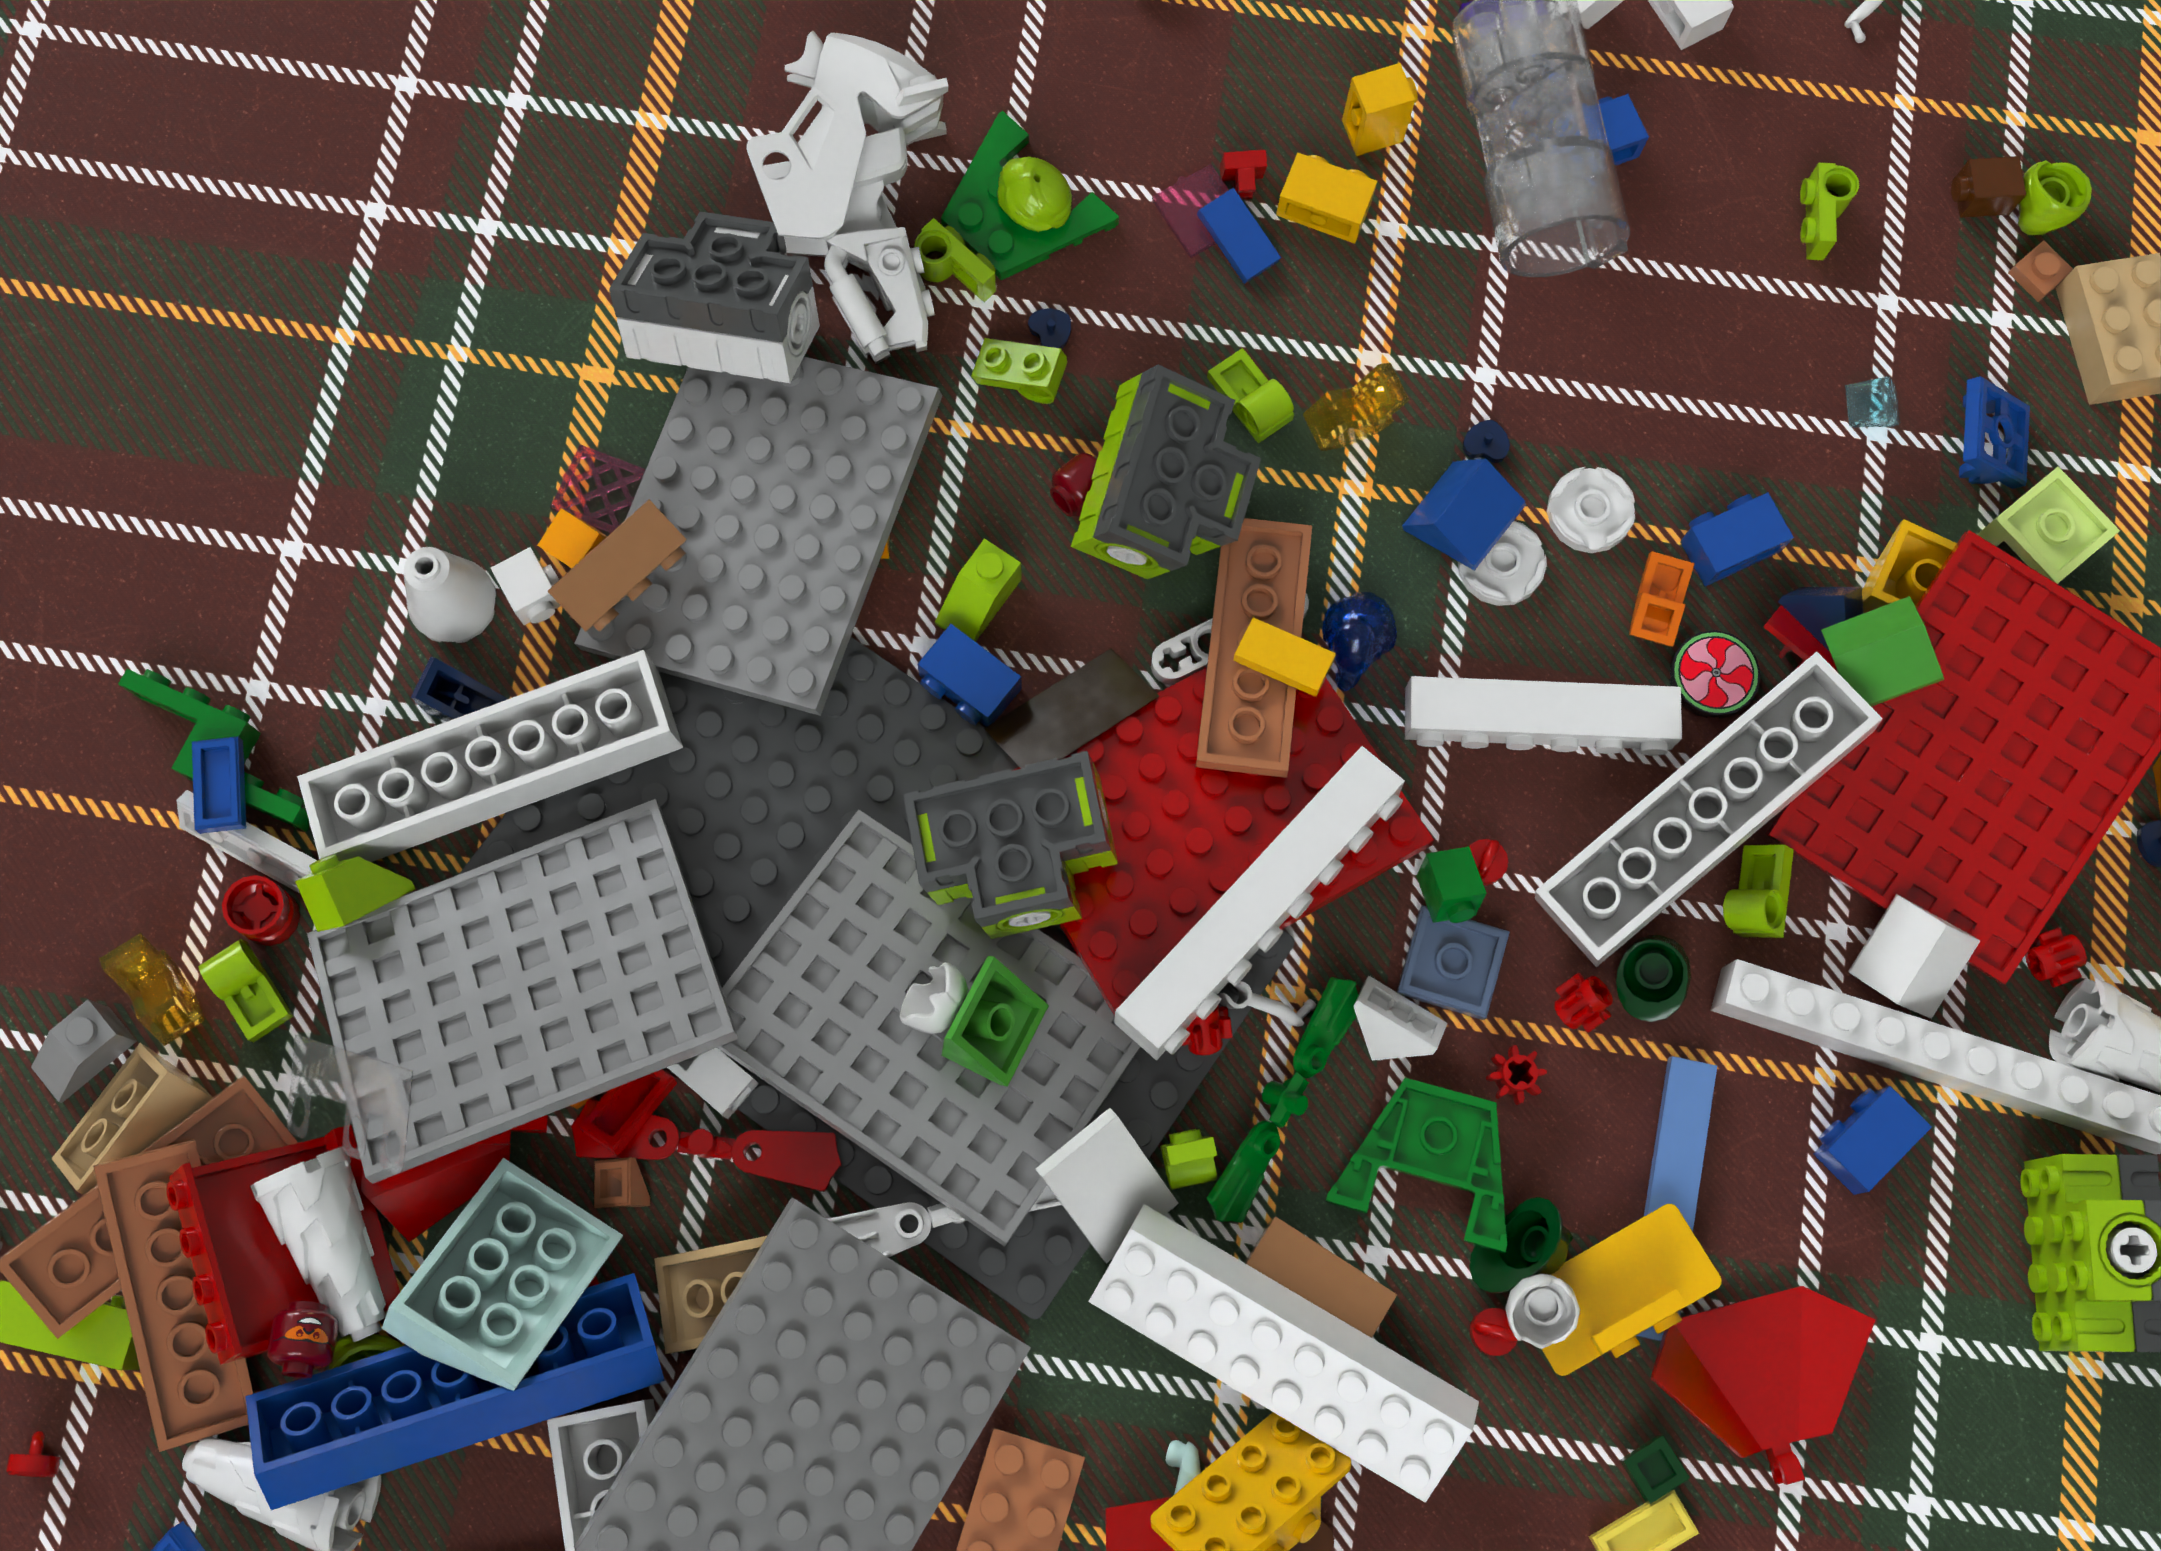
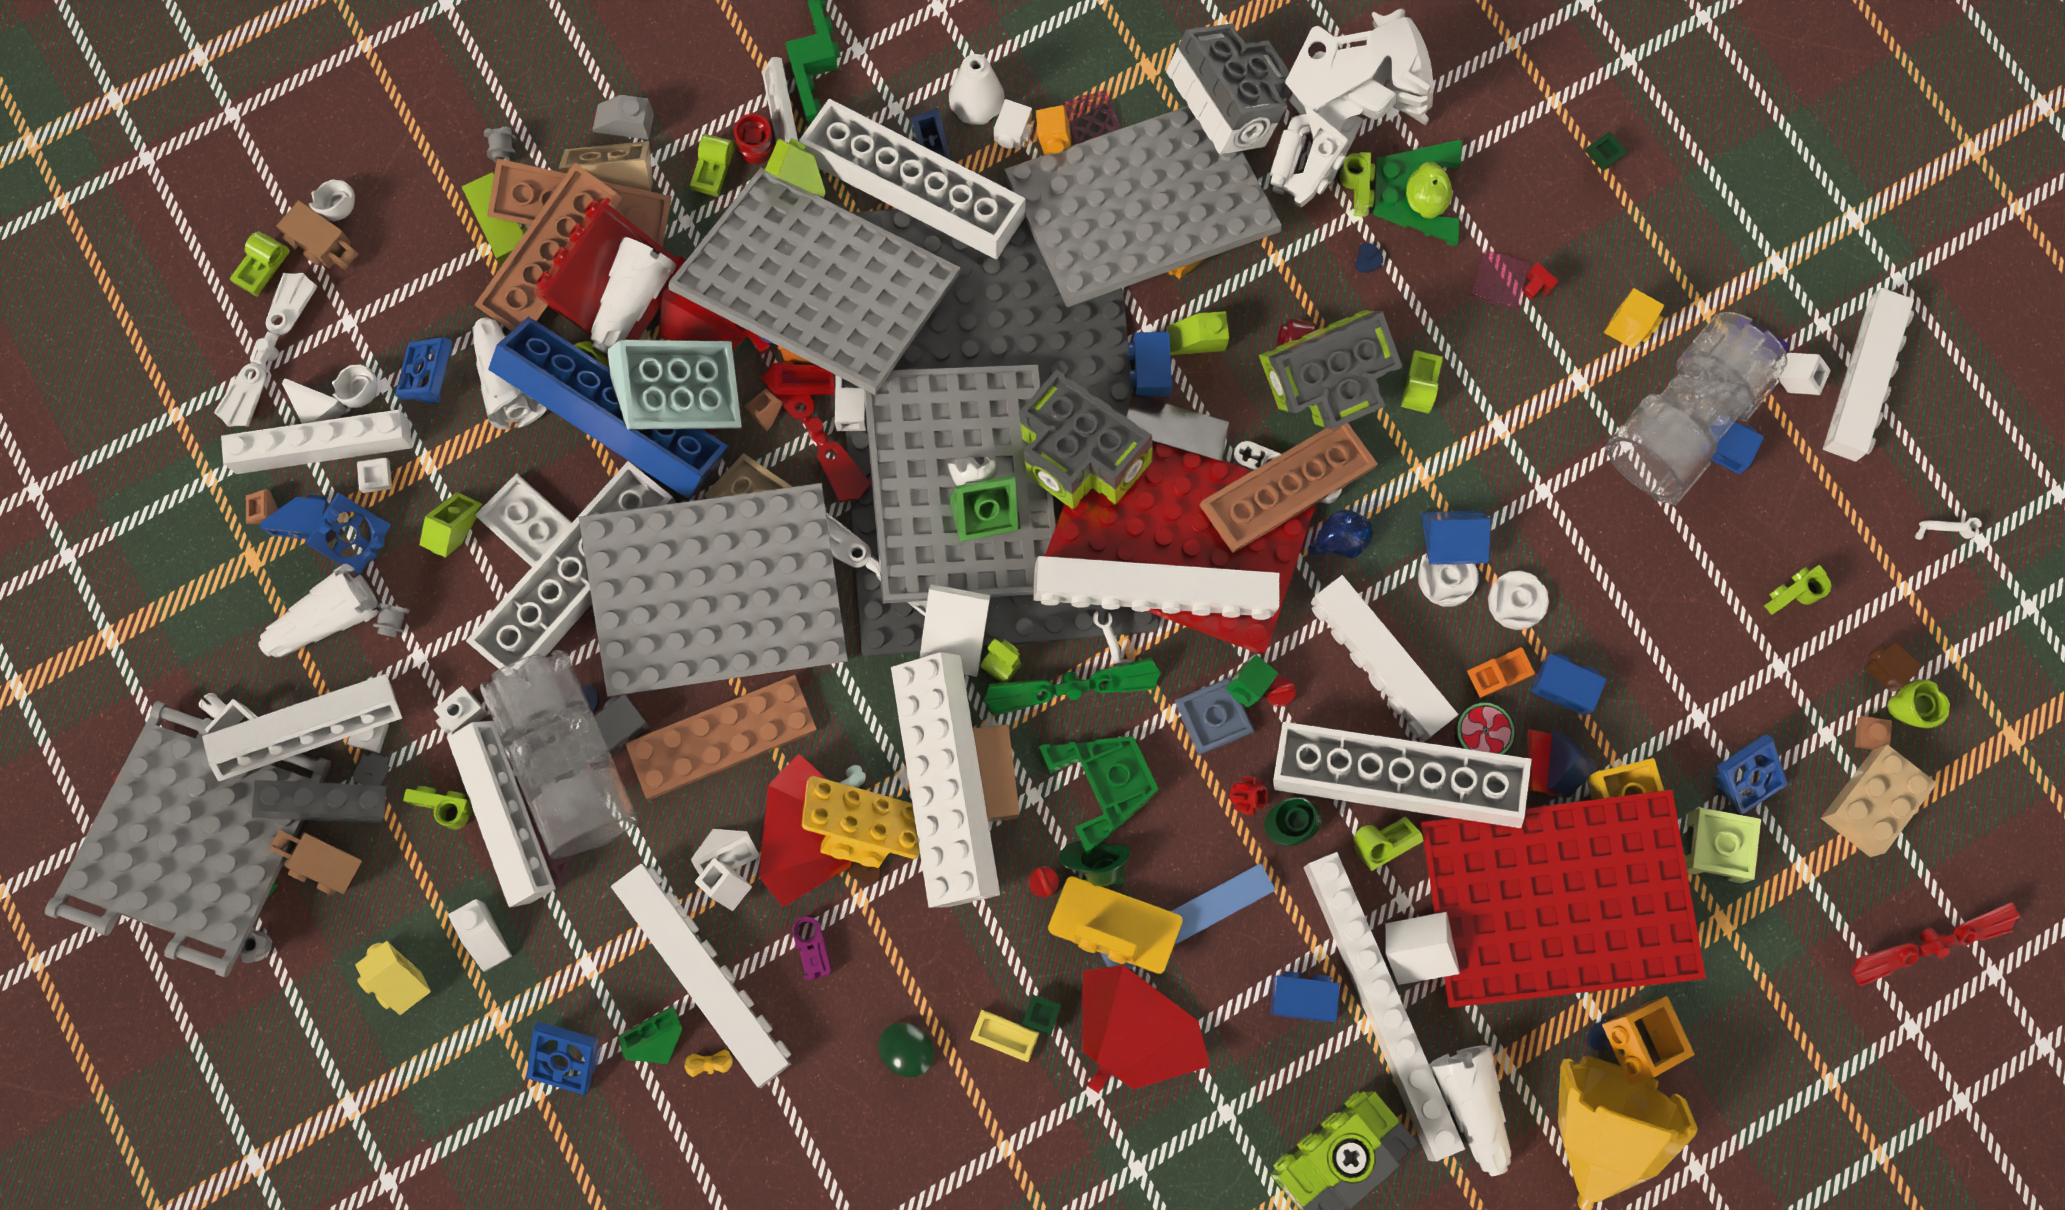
camera: 50 degrees right, 0 degrees up
(34, 1463) = (425, 257): red tile -> none
(156, 988) = (680, 123): clear yellow brick -> none
(218, 785) = (795, 68): blue tile -> none
(303, 1338) = (574, 319): dark red head -> none
(358, 1082) = (708, 242): clear piece -> none
(619, 567) = (1056, 154): medium nougat brick -> none
(1020, 366) = (1334, 260): lime plate -> none
(1207, 1034) = (1071, 617): red gear -> none
(1238, 235) = (1502, 307): blue tile -> none
(1284, 657) = (1293, 501): yellow tile -> none
(1326, 197) = (1564, 333): yellow brick -> none
(1356, 412) = (1458, 439): clear yellow brick -> none
(1395, 1024) = (1157, 710): white slope -> none
(1487, 440) = (1507, 518): dark blue piece -> none
(1528, 1076) = (1188, 785): red gear -> none
(1542, 1310) = (1071, 891): white hair -> none
(1872, 403) = (1712, 701): clear light blue slope -> none
(1884, 652) = (1564, 798): bright green slope -> none
(2056, 957) = (1486, 1023): red gear -> none

